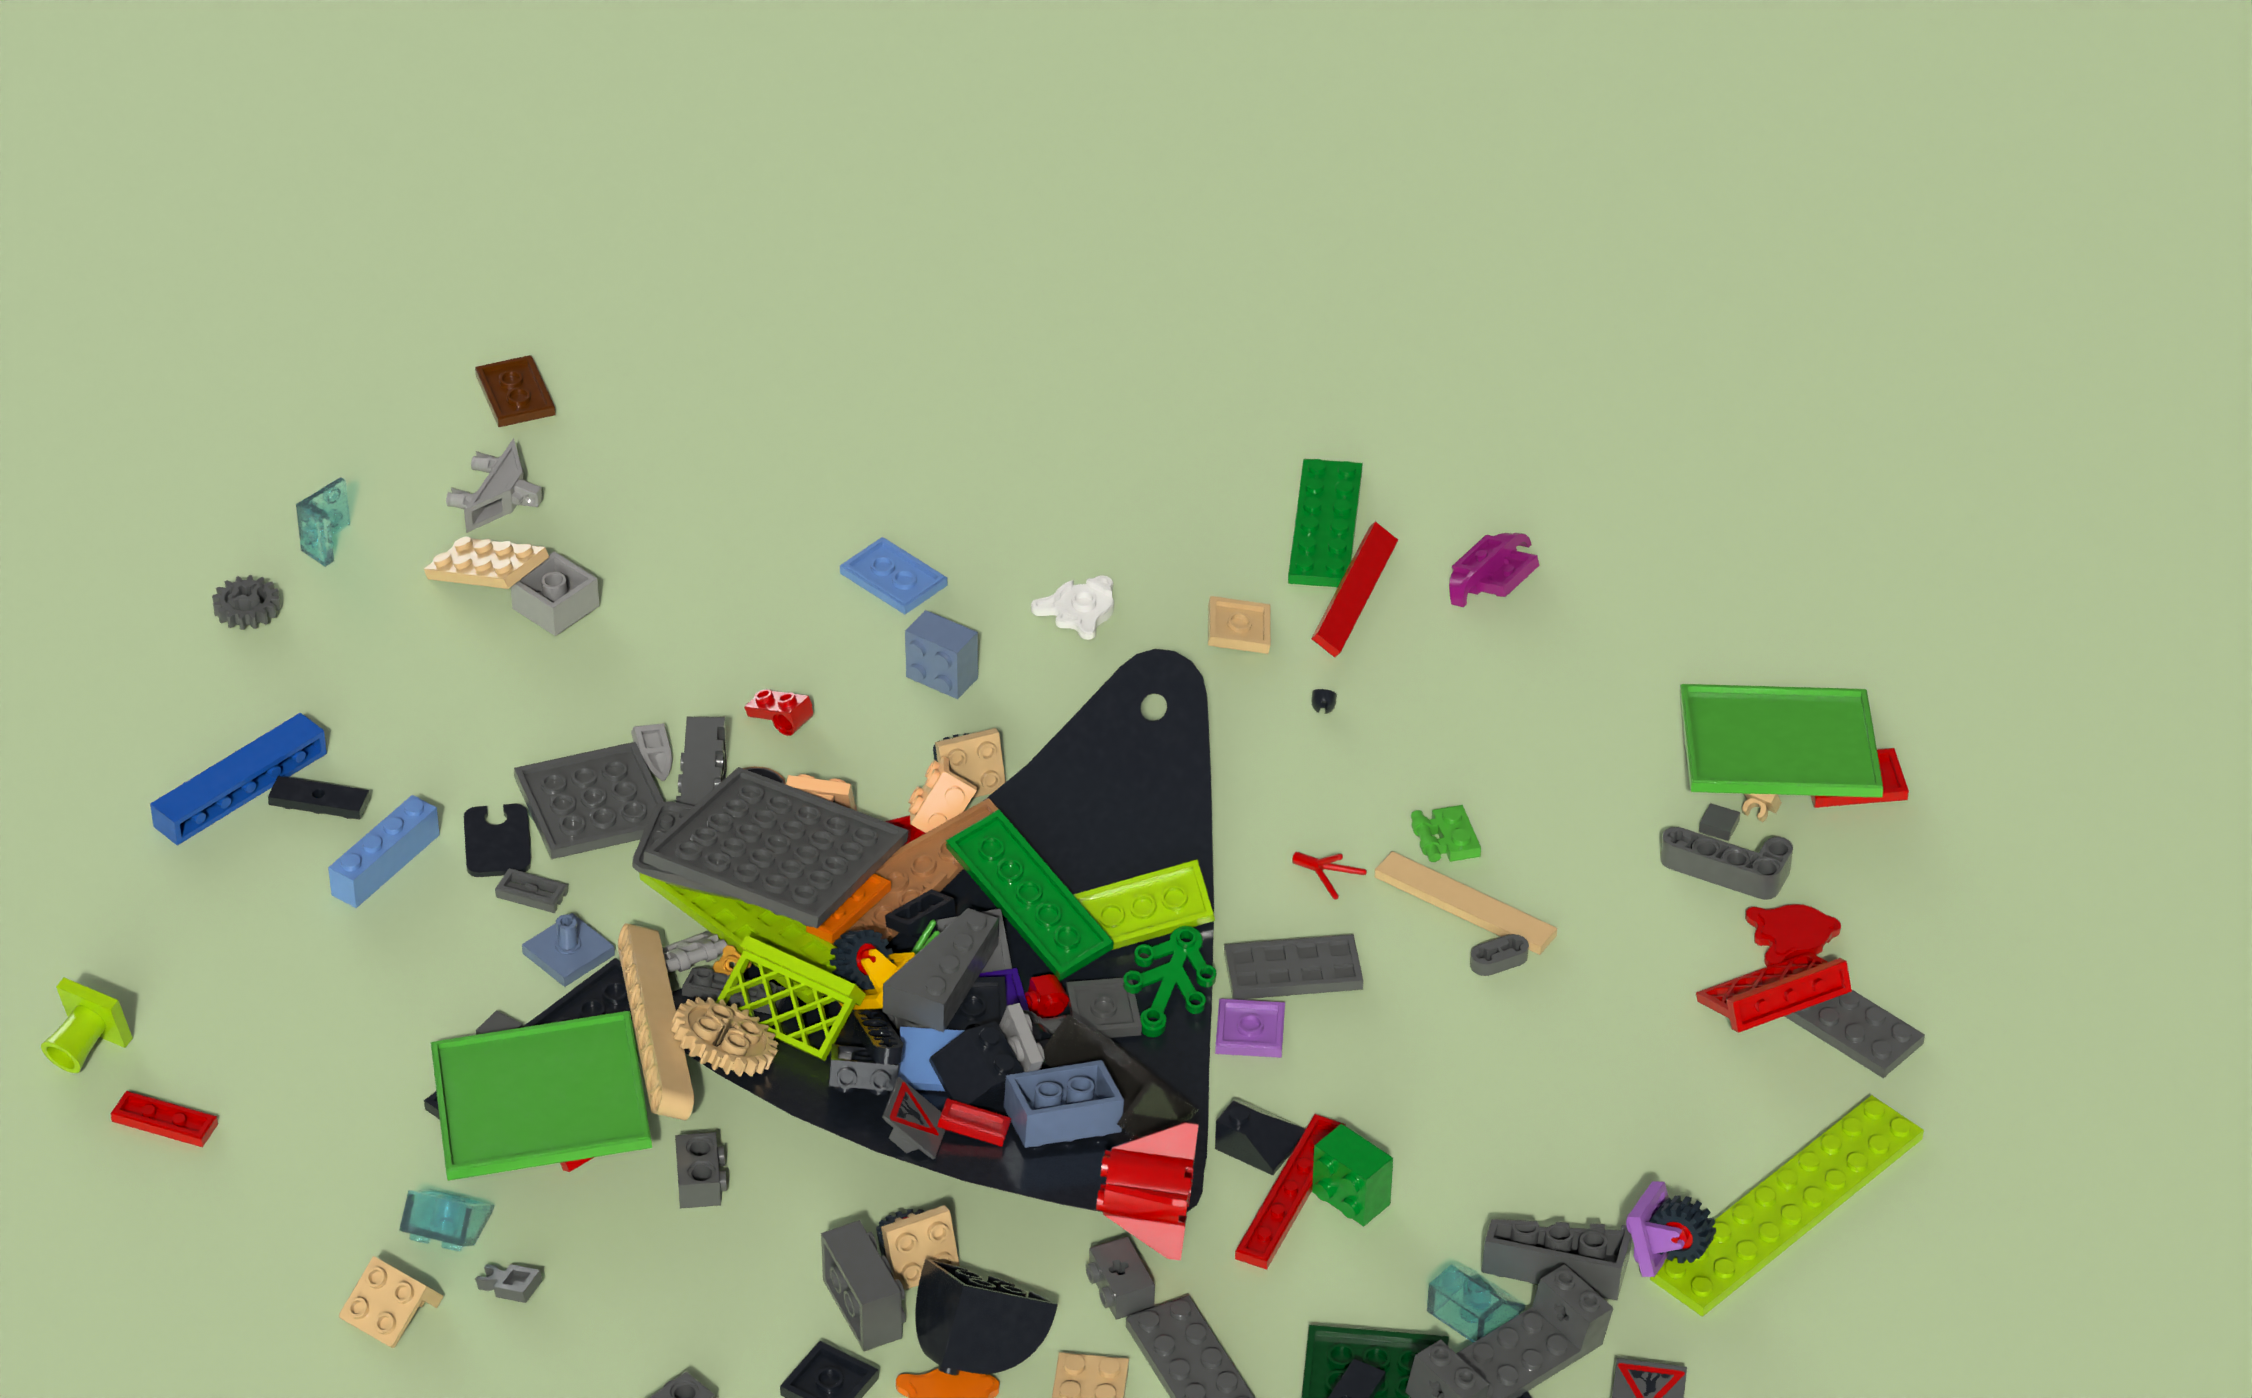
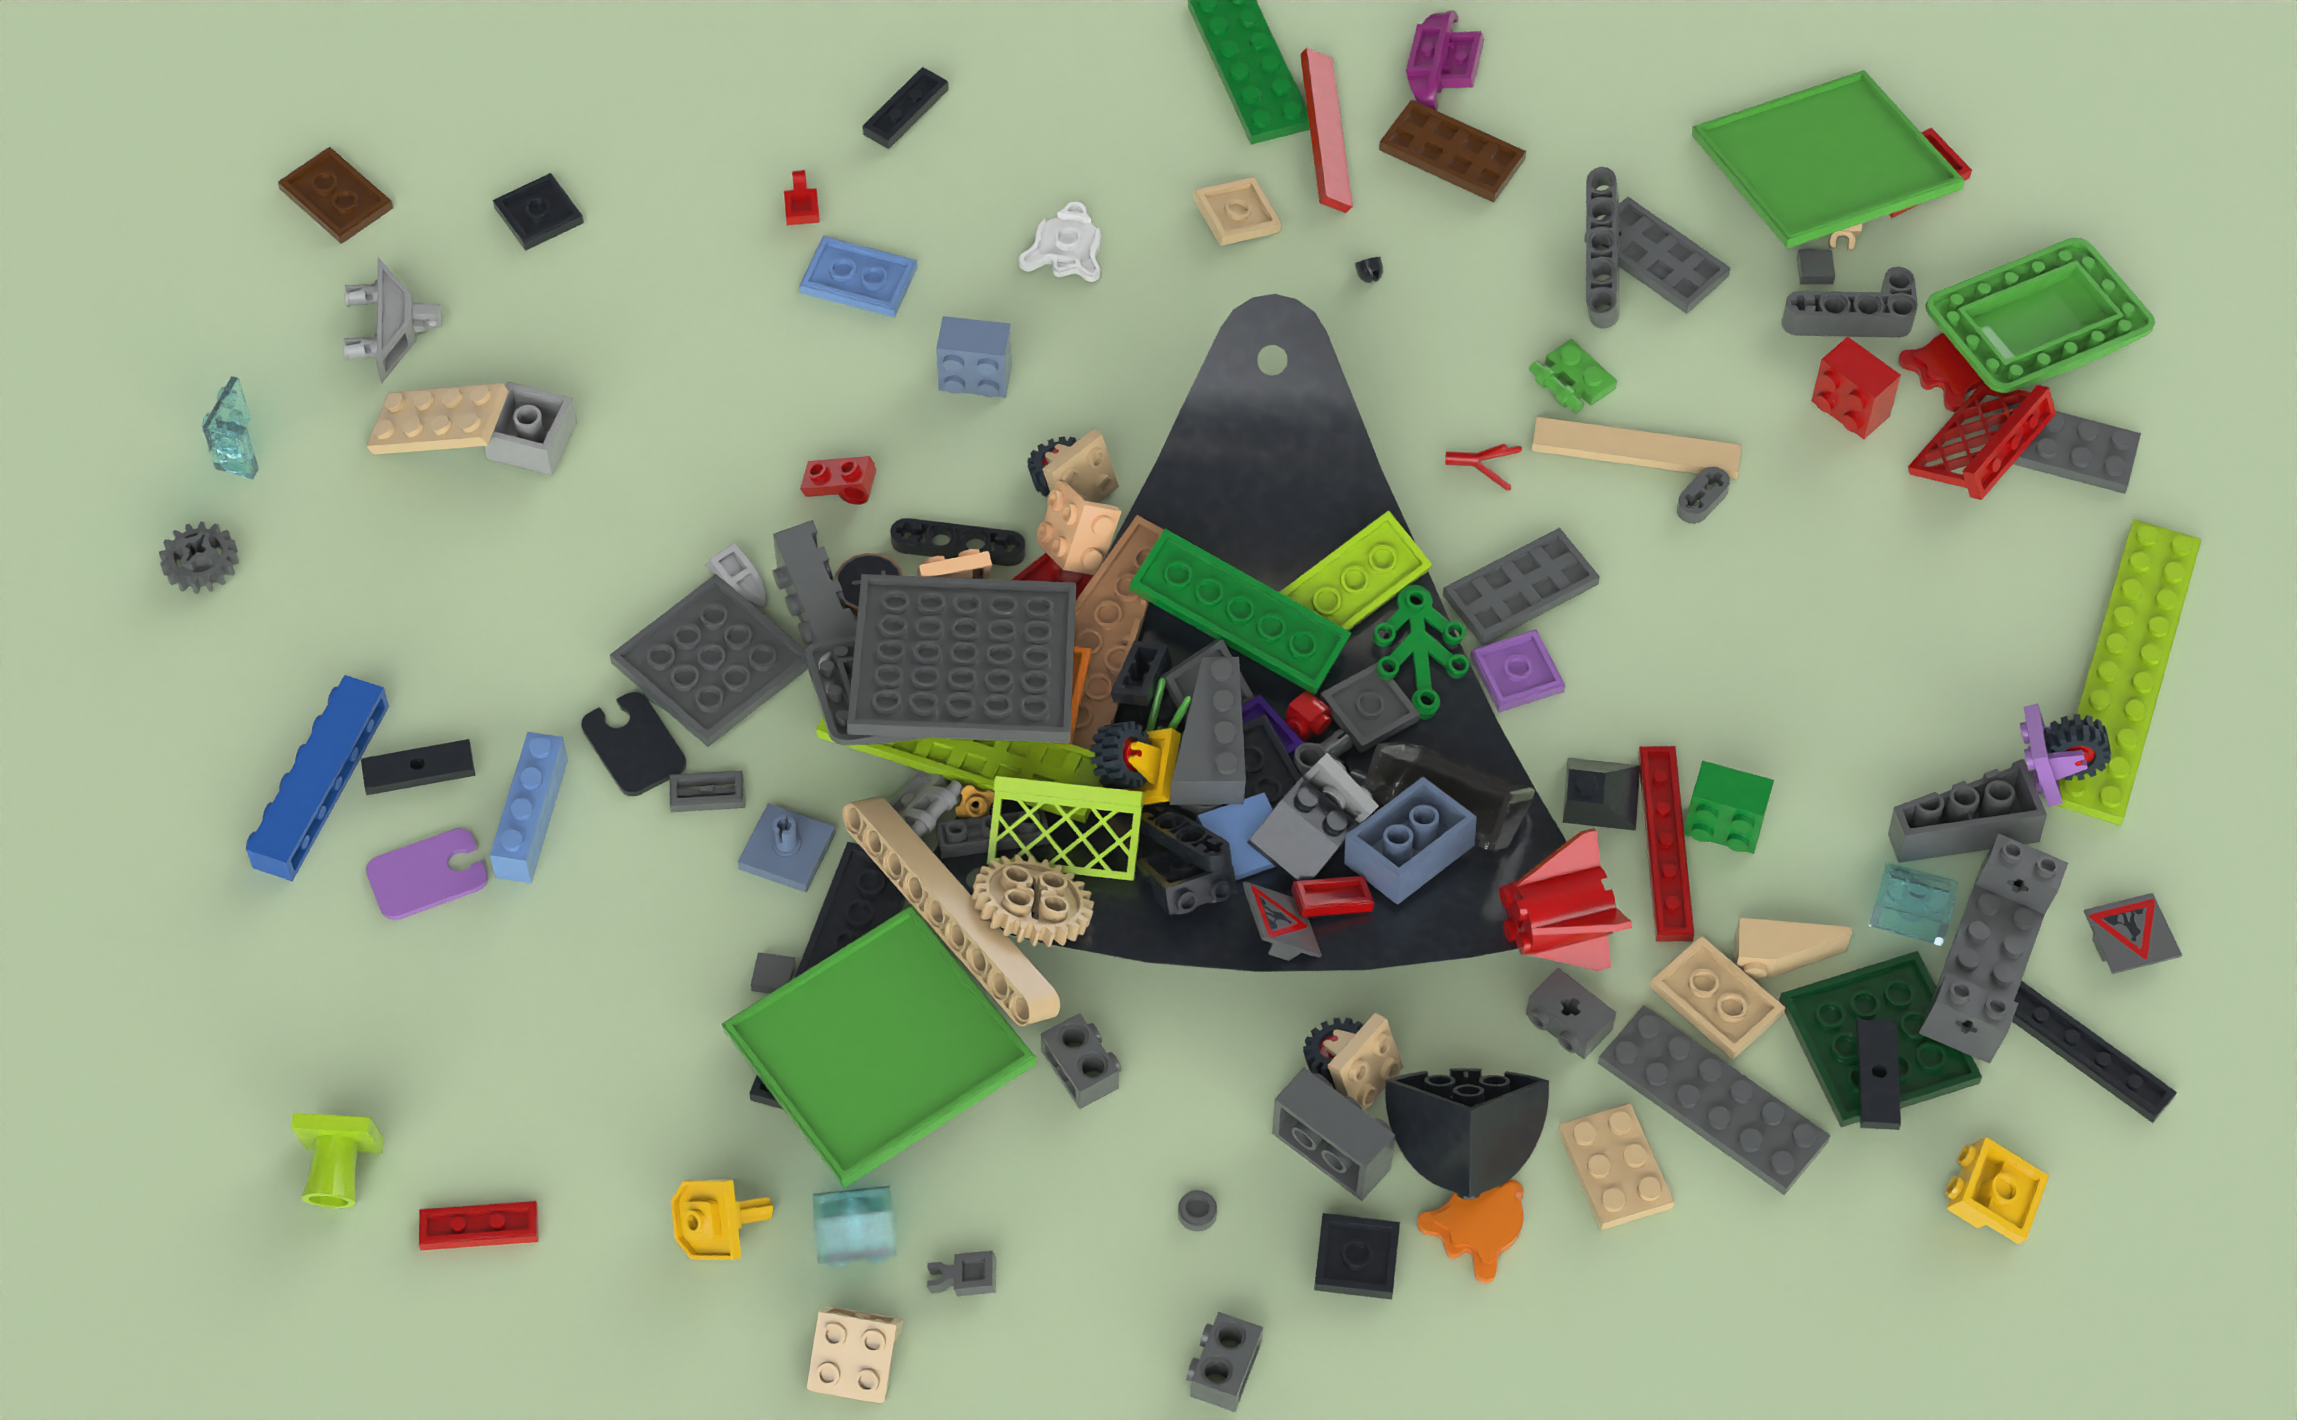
camera: 25 degrees left, 15 degrees up
(278, 874) = (420, 877): none -> medium lavender piece
(335, 1169) = (709, 1218): none -> yellow piece
(666, 451) = (538, 211): none -> black tile
(724, 1308) = (1197, 1210): none -> dark grey tile
(879, 799) = (959, 536): none -> black beam
(880, 508) = (801, 203): none -> red plate
(1011, 466) = (905, 107): none -> black plate
(1254, 1311) = (1717, 997): none -> tan plate
(1337, 1295) = (1779, 947): none -> tan slope
(1455, 637) = (1452, 150): none -> reddish brown plate
(1529, 742) = (1602, 261): none -> dark grey beam
(1581, 767) = (1665, 258): none -> dark grey plate
(1680, 913) = (1855, 388): none -> red brick
(1888, 914) = (2040, 315): none -> bright green wedge

